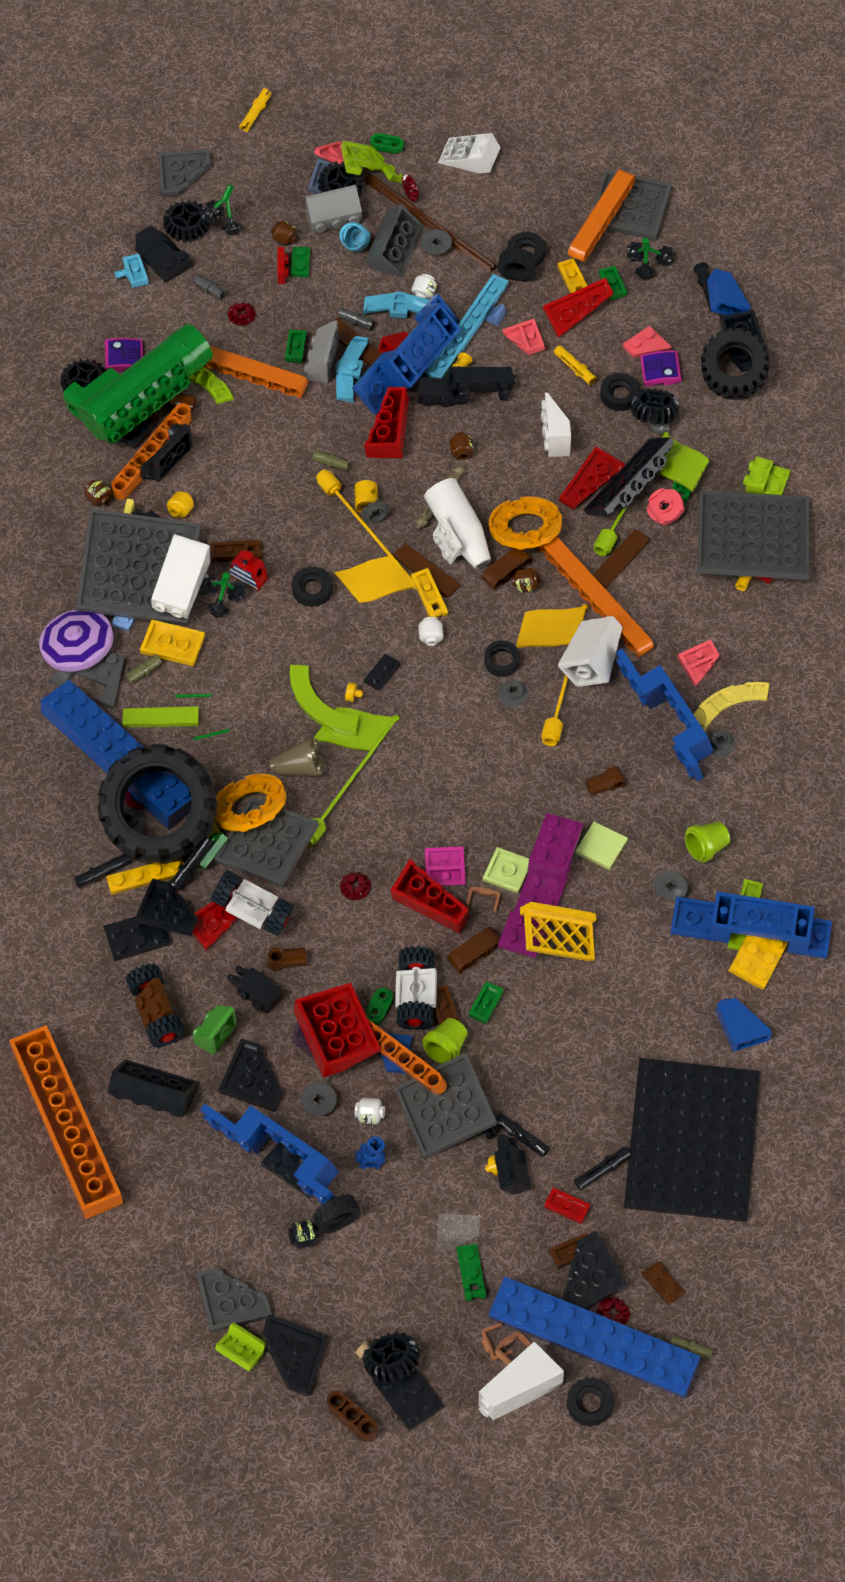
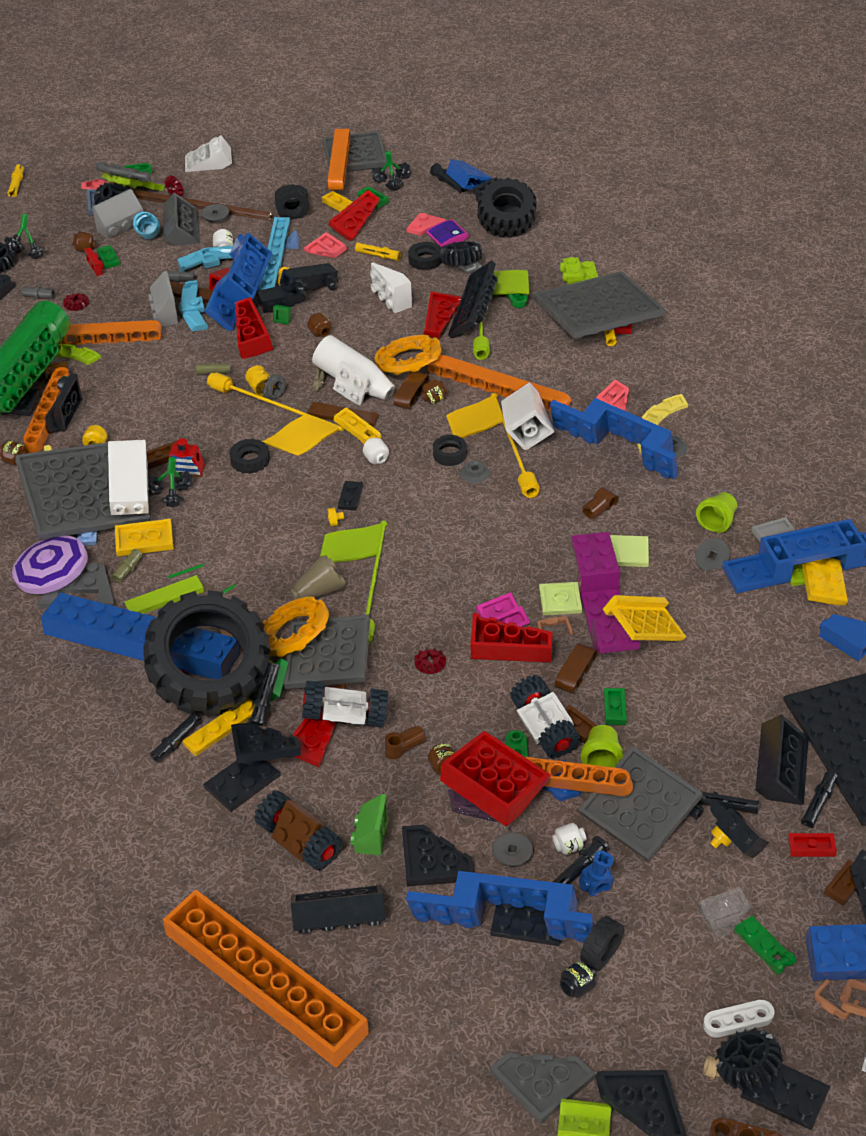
camera: 25 degrees left, 15 degrees down
(256, 989) = (389, 778): black hinge -> none
(295, 346) = (136, 307): green plate -> none
(308, 986) = (439, 754): none -> reddish brown head
(315, 707) = (307, 540): lime tile -> none
(363, 150) = (123, 172): none -> dark grey plate
(382, 1131) = (585, 859): none -> black pin
(401, 1316) = (746, 1012): none -> white plate
(432, 415) = (281, 314): none -> green tile
(593, 1120) = (782, 762): none -> black slope
(621, 558) = (501, 352): reddish brown tile -> none
(673, 511) = (514, 318): coral plate -> none
(747, 882) = (771, 528): none -> light grey tile

